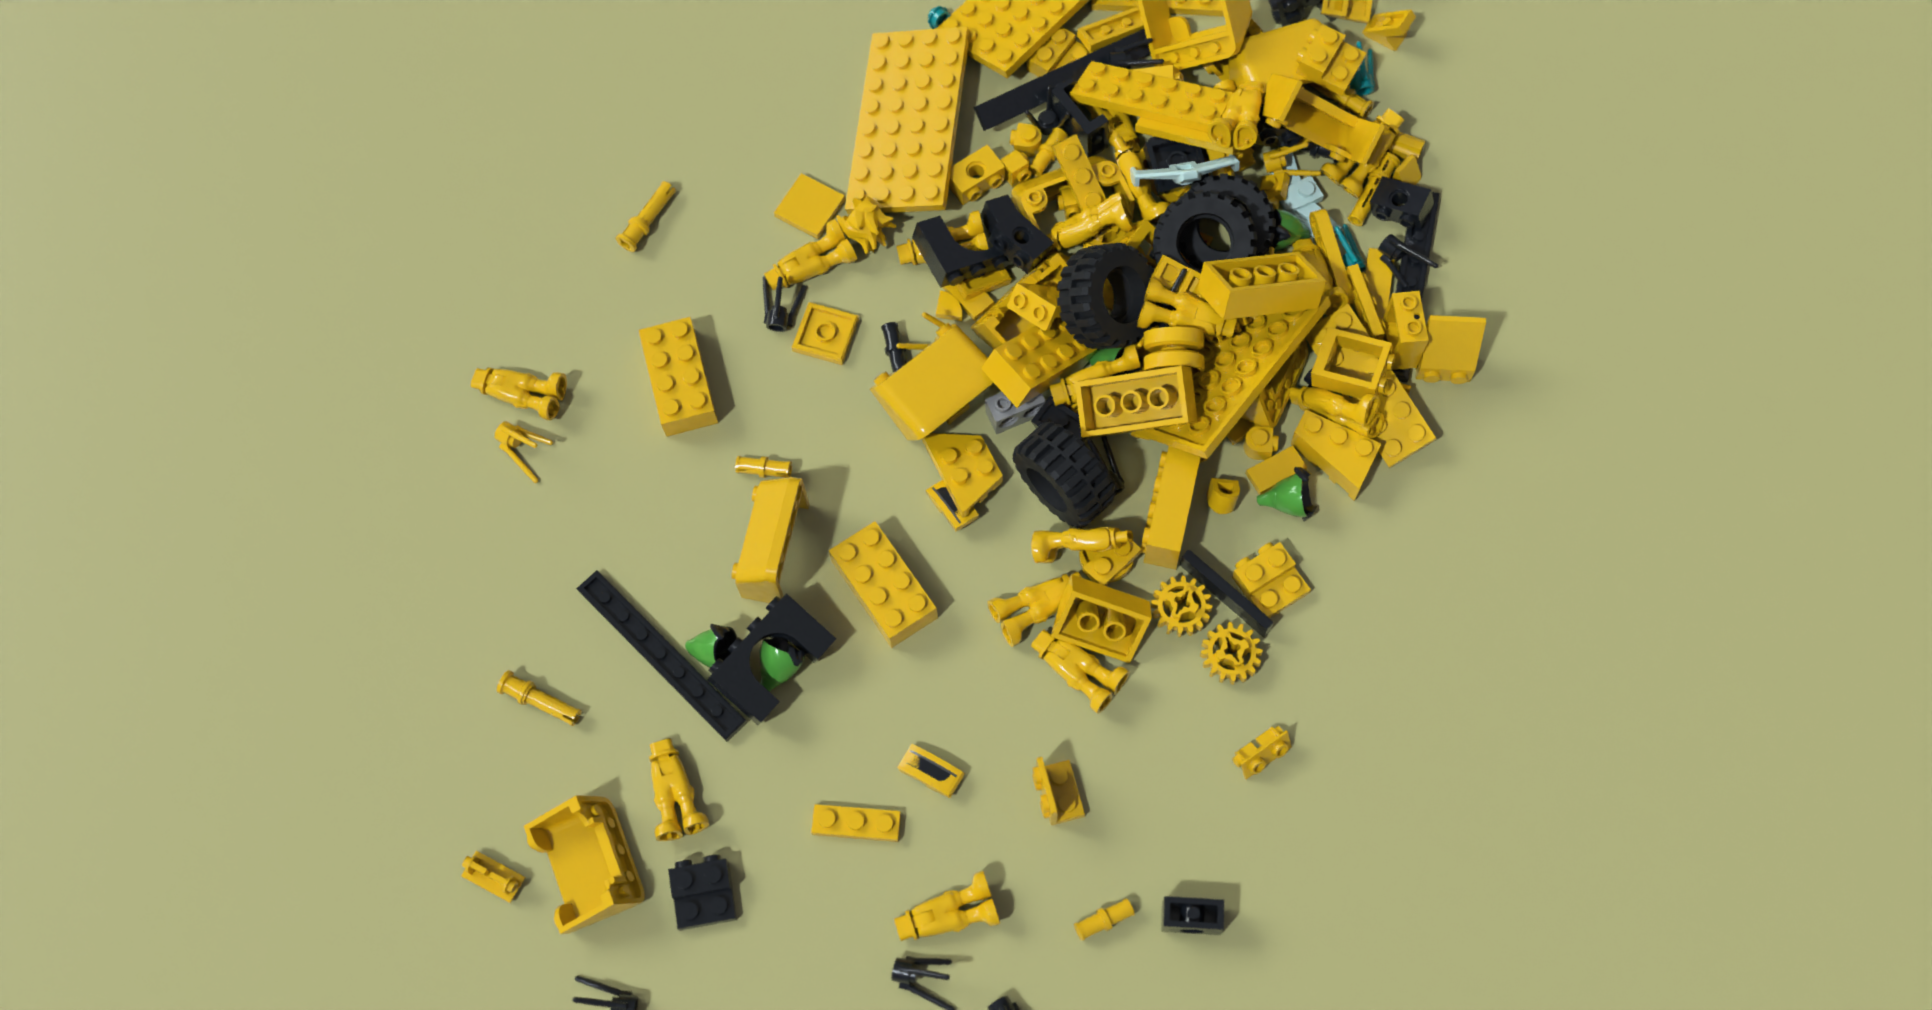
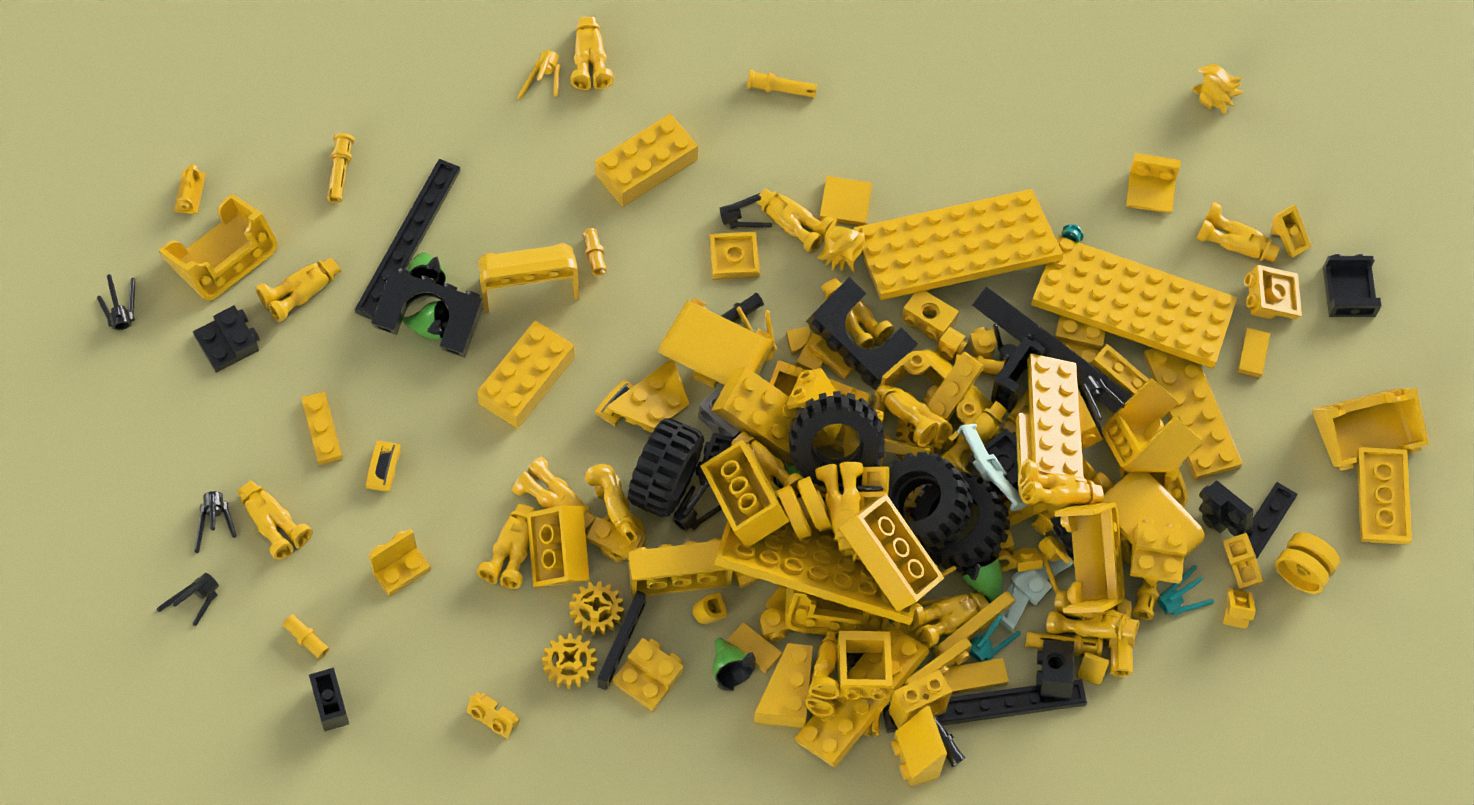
camera: 60 degrees right, 5 degrees down
(1020, 241) = (876, 351): black brick -> none
(1395, 249) = (1006, 677): black plant -> none

